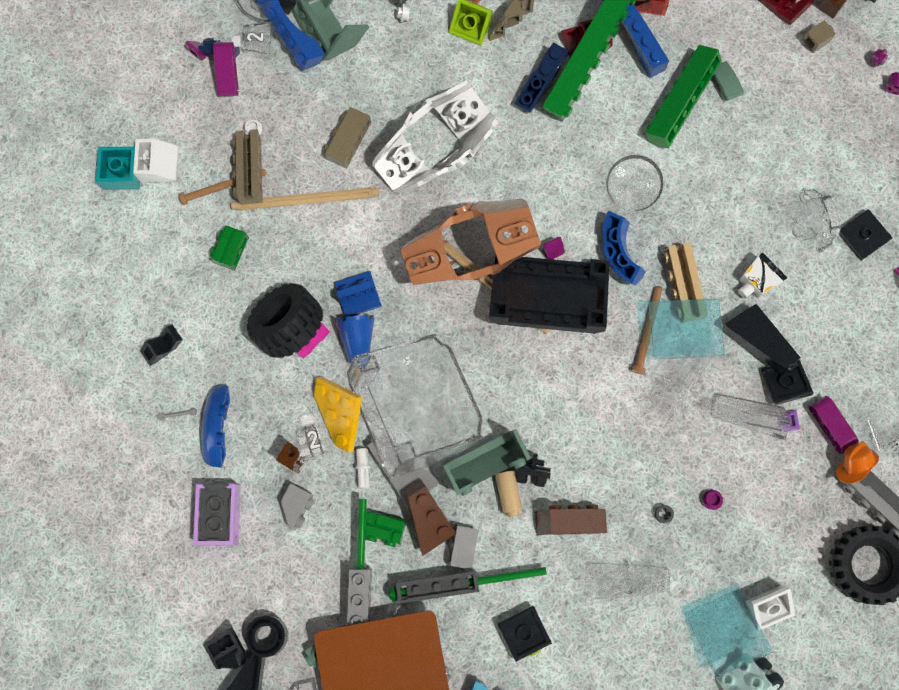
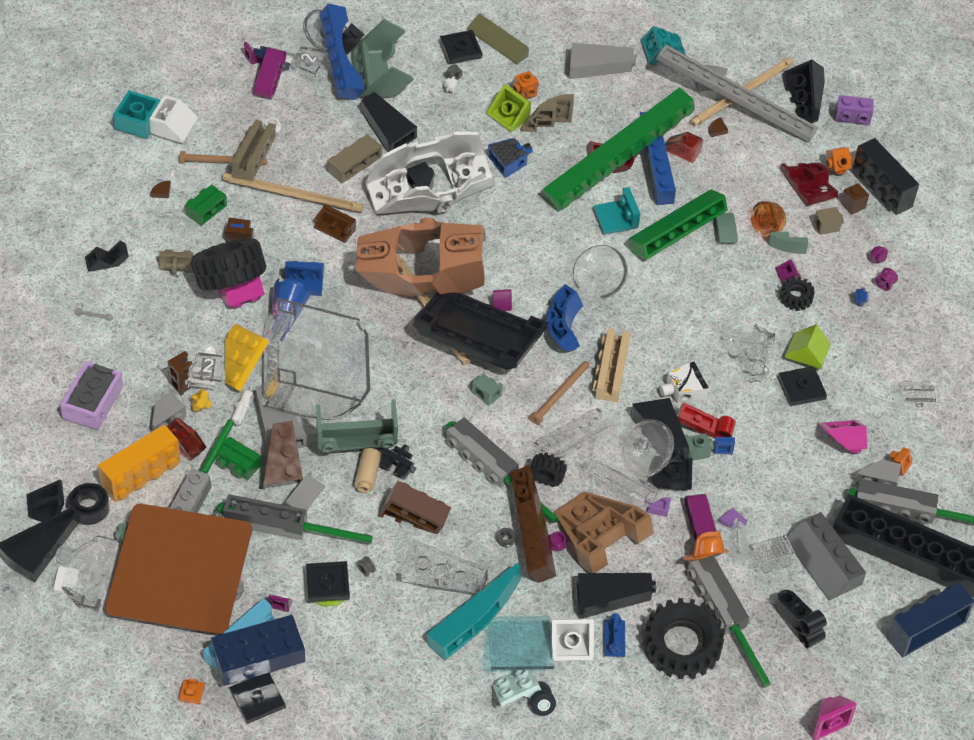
camera: 10 degrees right, 25 degrees down
(179, 244) = (161, 190): none -> reddish brown tile
(212, 426) = (118, 335): blue brick -> none
(230, 325) = (175, 260): none -> dark tan hips
(274, 266) = (238, 229): none -> reddish brown brick
(295, 578) = (139, 463): none -> light orange brick
(320, 476) = (200, 400): none -> yellow piece
(324, 527) = (189, 440): none -> clear red slope
(361, 82) = (387, 122): none -> black slope
(361, 221) = (335, 223): none -> reddish brown hinge
(421, 138) = (420, 176): none -> black slope
(488, 669) = (280, 603): none -> magenta slope
(492, 76) = (509, 155): none -> torso
(542, 78) = (548, 172): dark blue slope -> none
(551, 600) = (366, 566): none -> dark grey bush
(580, 356) = (487, 389): none -> sand green brick
(616, 436) = (485, 455): none -> piece
(622, 104) = (618, 214): none -> teal bracket
(671, 616) = (473, 615): none -> teal slope
(676, 429) = (548, 469): none -> black tyre
(686, 329) = (594, 394): clear light blue piece -> none
(687, 497) = (532, 526): none -> reddish brown slope
(737, 467) = (596, 523): none -> medium nougat wedge
(765, 54) = (768, 214): none -> clear orange cylinder
(766, 360) = (652, 453): none -> clear dish
(782, 540) = (612, 591): none -> black slope
(788, 77) = (783, 242): none -> sand green slope
(797, 313) = (705, 422): none -> red plate
(801, 108) = (787, 270): none -> magenta slope
(806, 585) = (614, 636): none -> blue hinge
(807, 339) = (699, 446): none -> sand green brick
(814, 139) = (795, 301): none -> black tyre
(822, 333) = (724, 445): none -> blue tile
(855, 190) = (809, 347): none -> lime slope
(860, 410) = (728, 518): none -> medium lavender tile
(881, 112) = (861, 296): none -> blue plate

